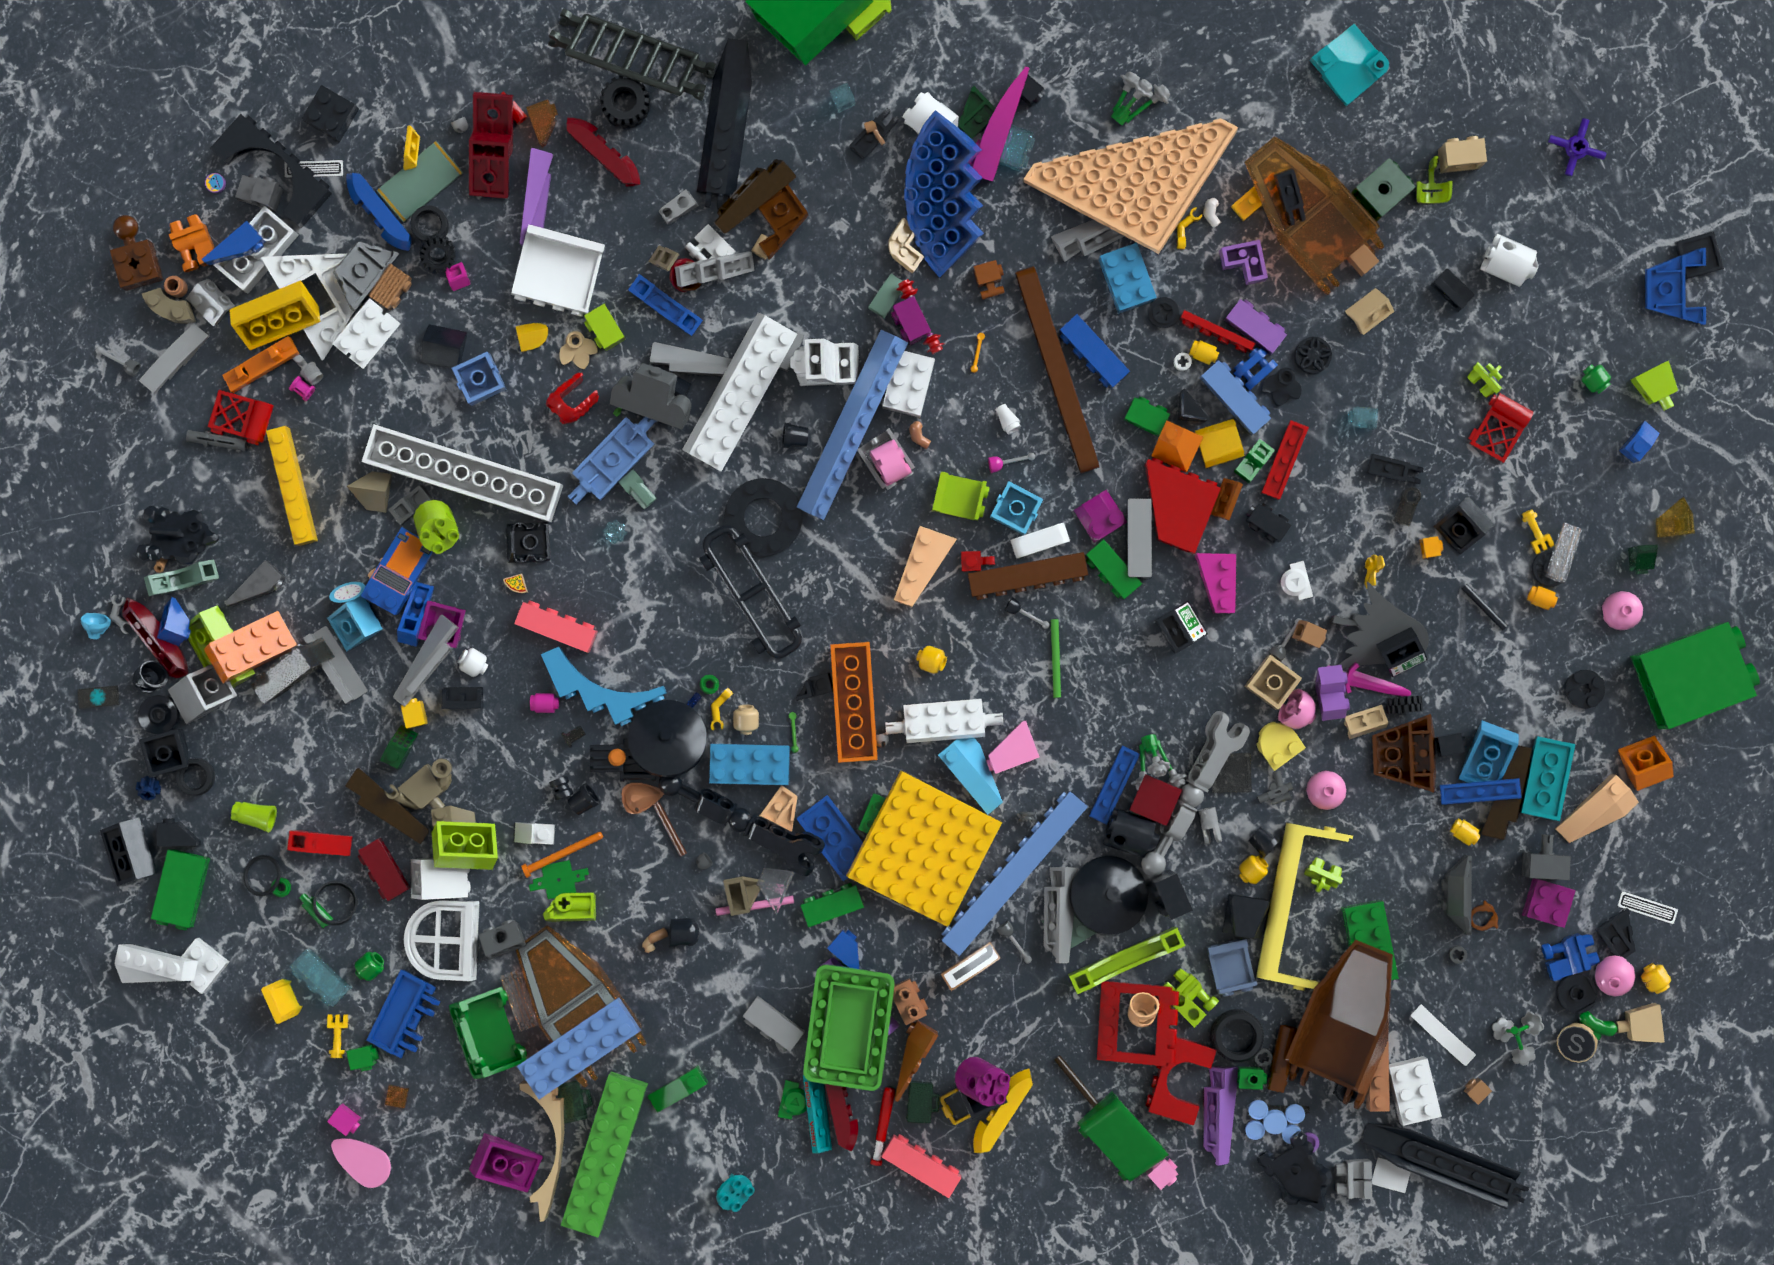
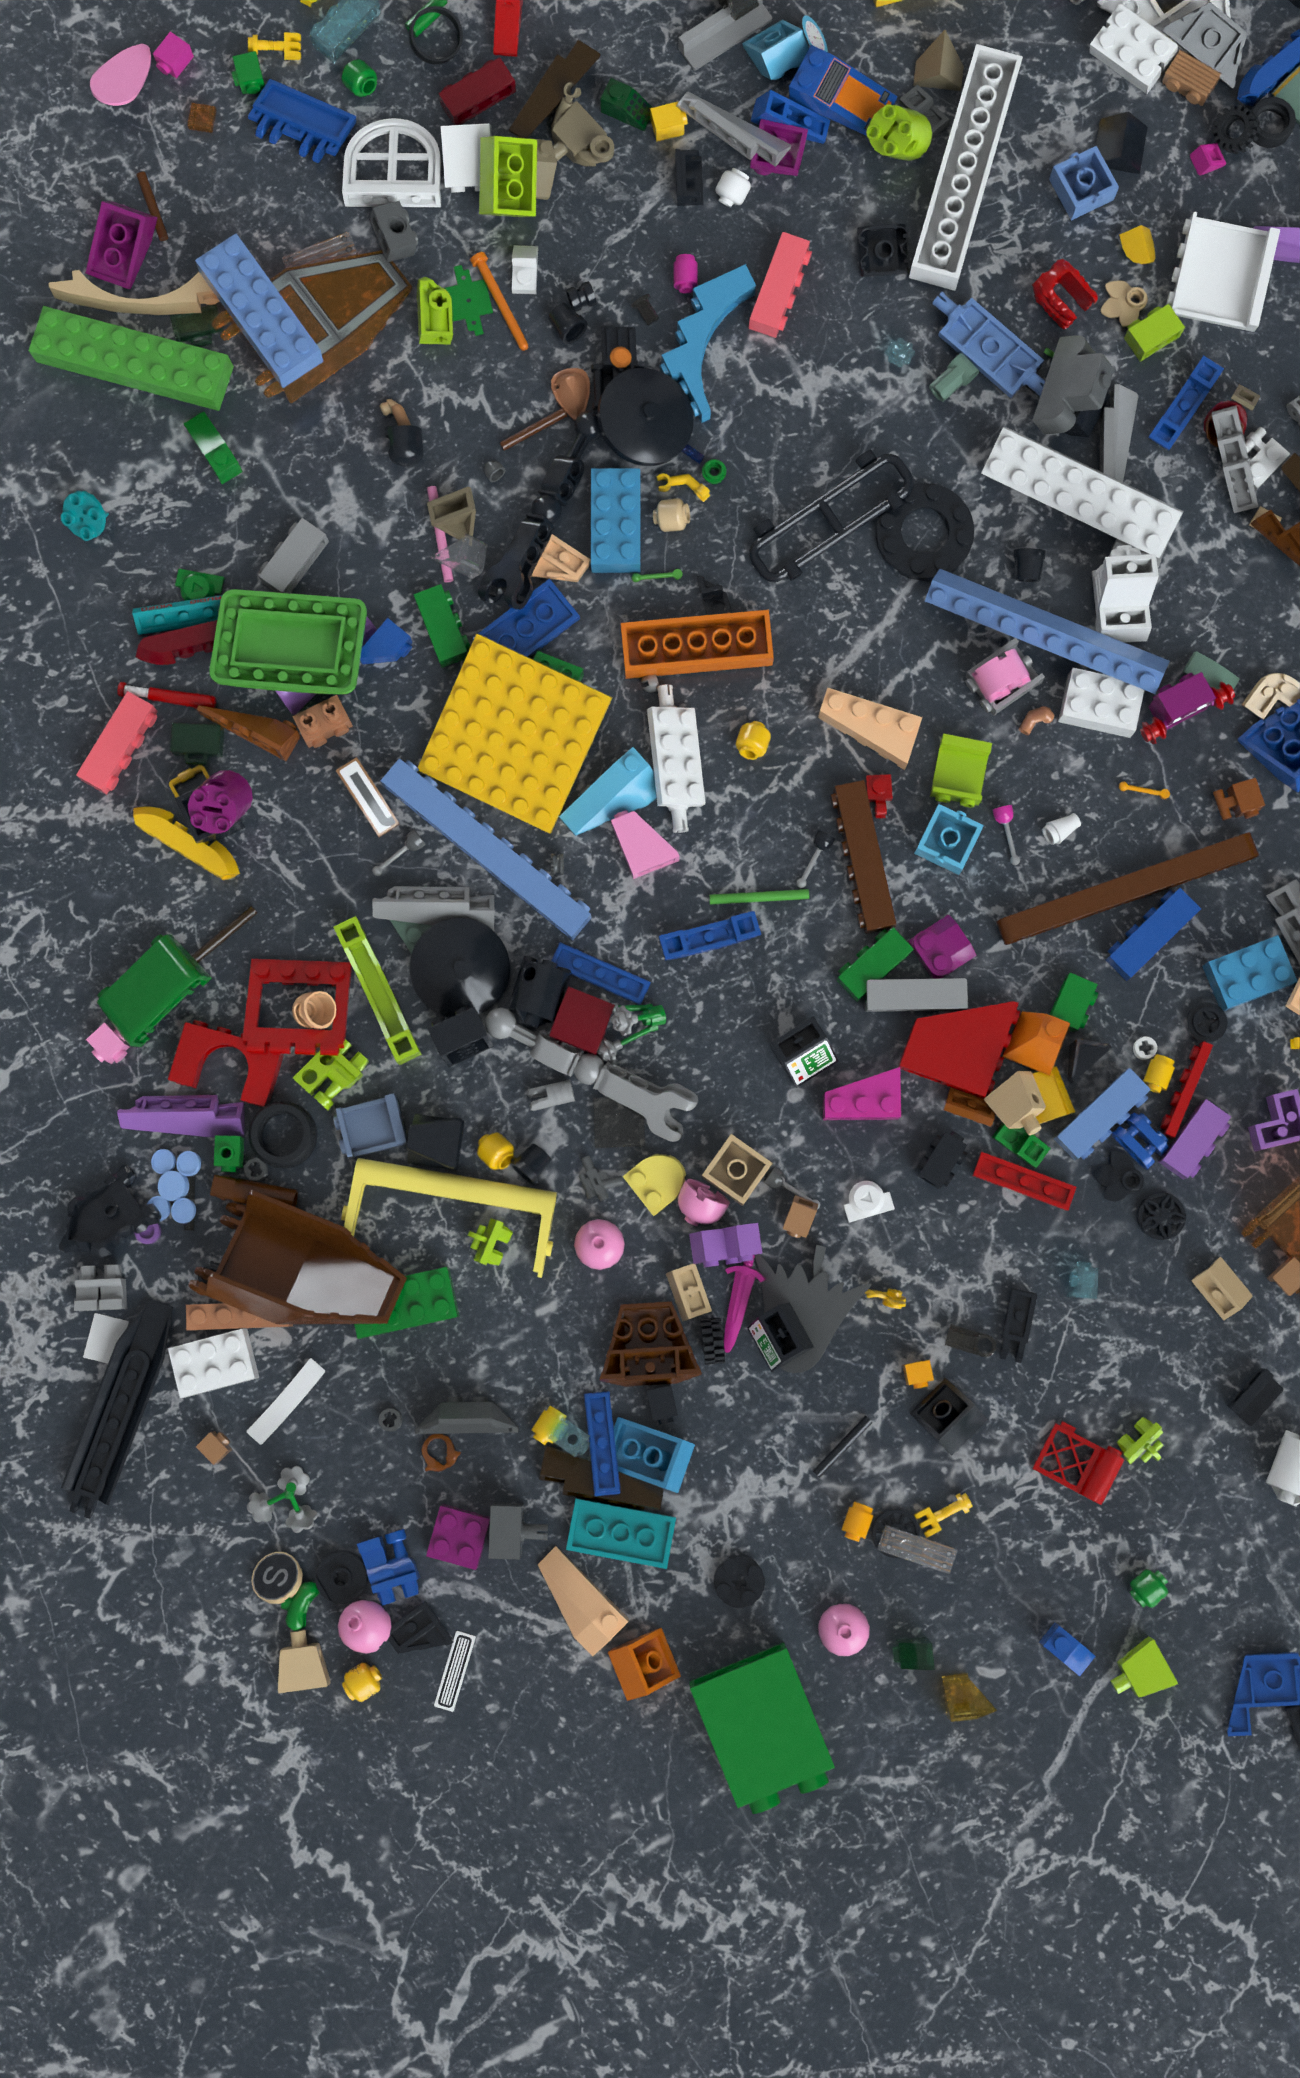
camera: 90 degrees right, 5 degrees down
(471, 1137) = (152, 205): none -> reddish brown bar
(486, 1033) = (281, 216): green windscreen -> none
(516, 583) = (831, 238): tile -> none
(1040, 540) = (908, 872): white beam -> none
(1087, 698) = (710, 936): none -> blue slope
(1227, 462) = (1018, 1102): none -> tan torso
(1471, 819) = (563, 1431): none -> clear light blue brick

